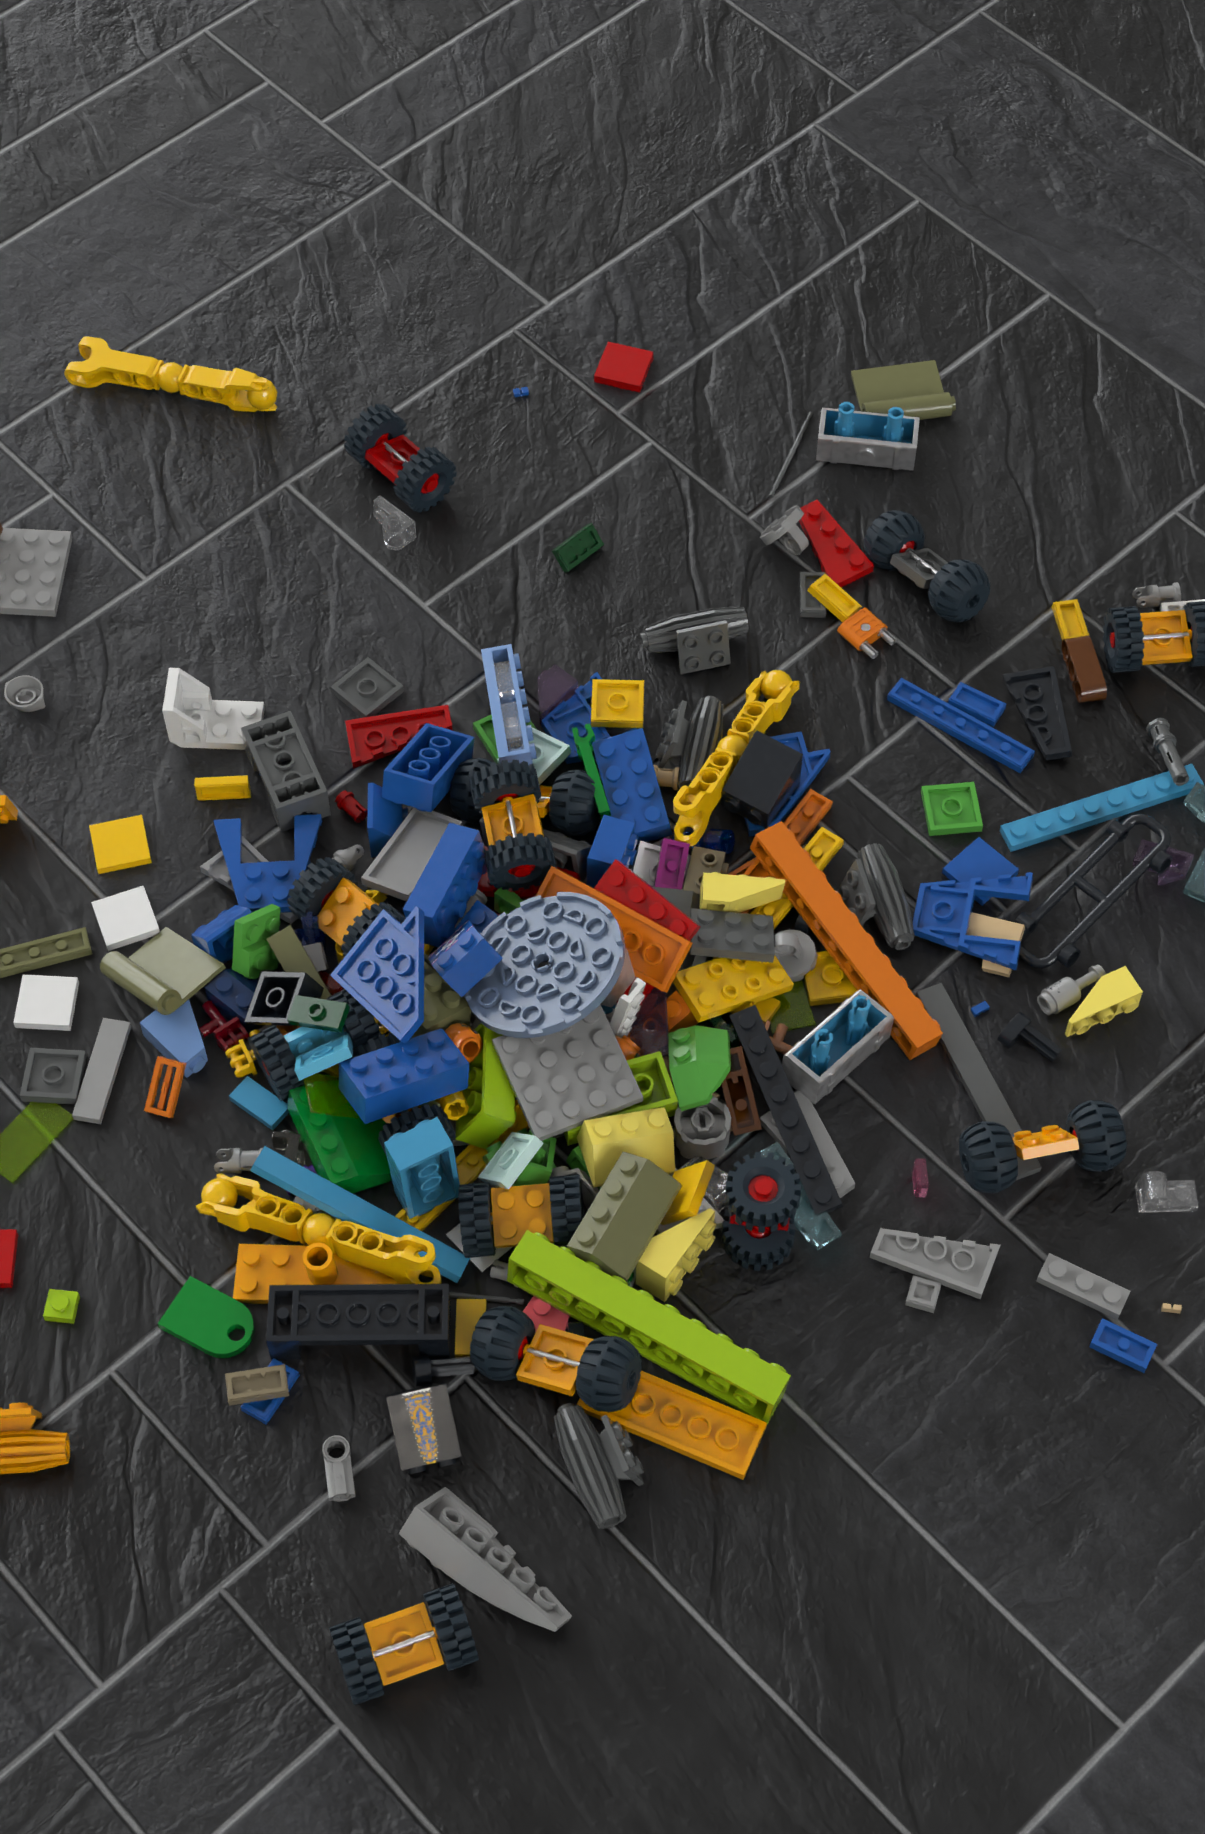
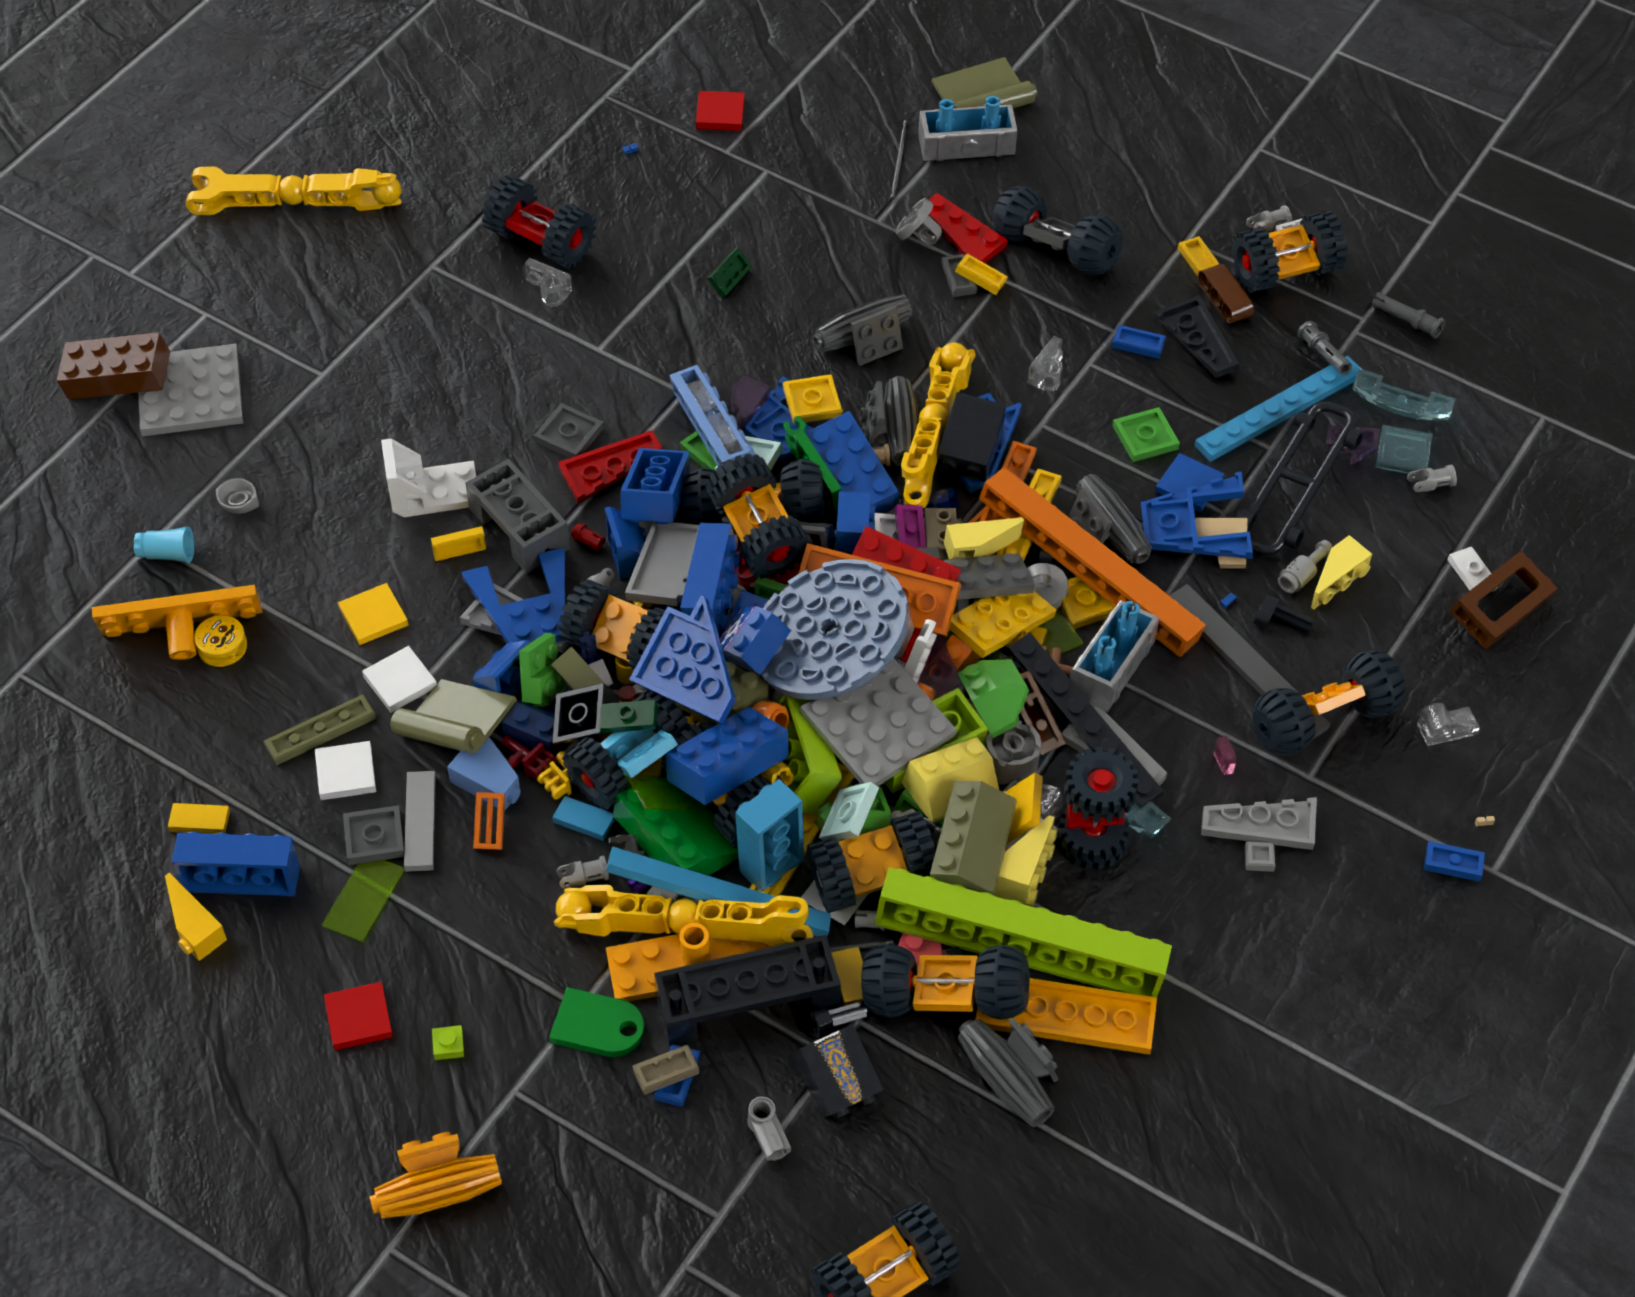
camera: 15 degrees left, 5 degrees down
(470, 1554) = (912, 1174): light grey wedge -> none
(863, 630) = (1016, 296): orange piece -> none
(868, 716) = (1047, 368): none -> clear plate
(960, 725) = (1131, 362): blue tile -> none
(1083, 1286) = (1401, 818): light grey plate -> none

